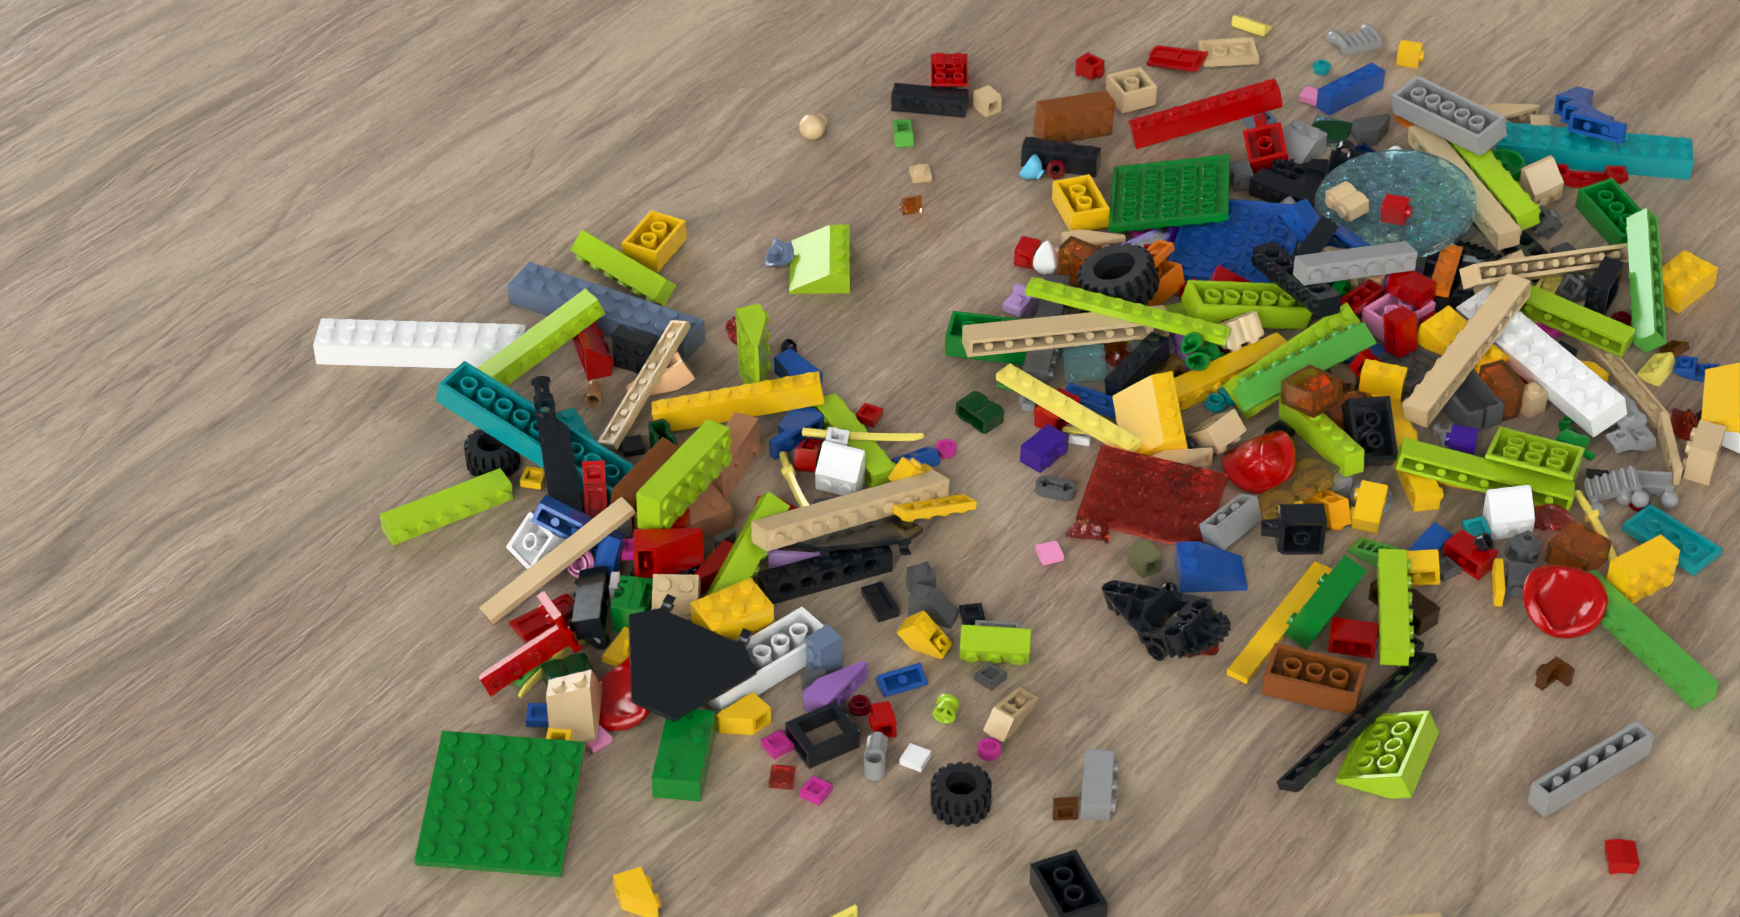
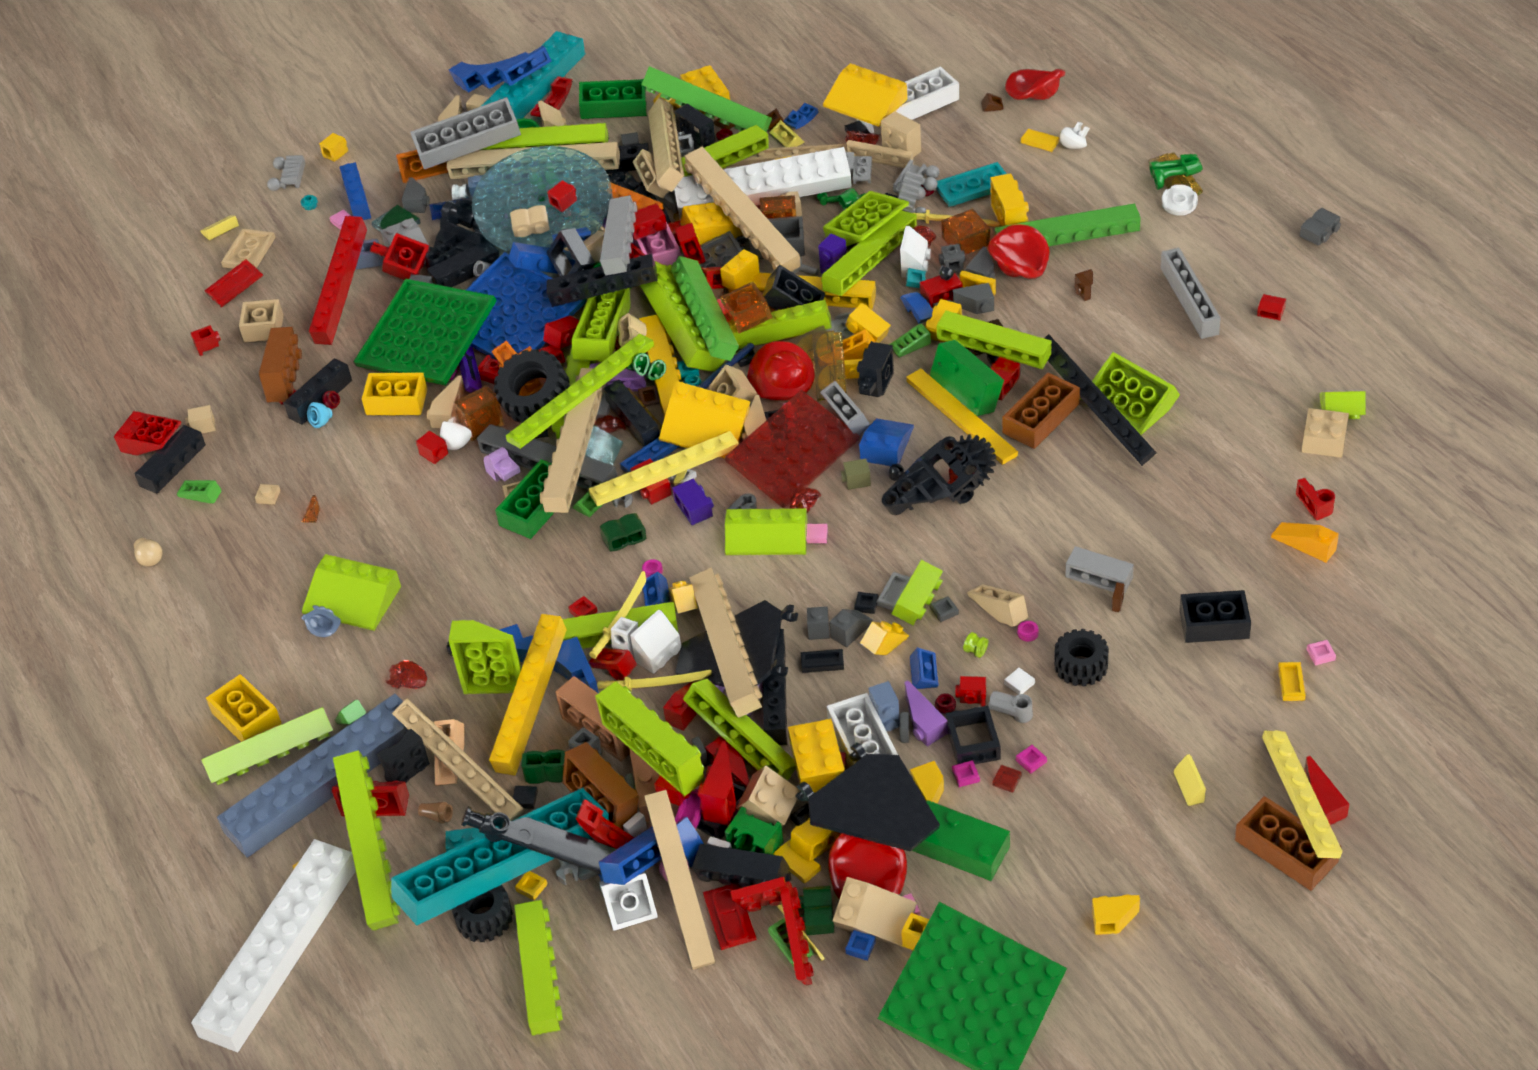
camera: 65 degrees left, 5 degrees up
(673, 301) = (350, 713): none -> slope
(933, 507) = (736, 589): yellow plate -> none
(1027, 511) = (766, 531): none -> lime slope
(1201, 408) = (737, 357): none -> dark blue piece
(1473, 587) = (975, 298): none -> dark grey slope

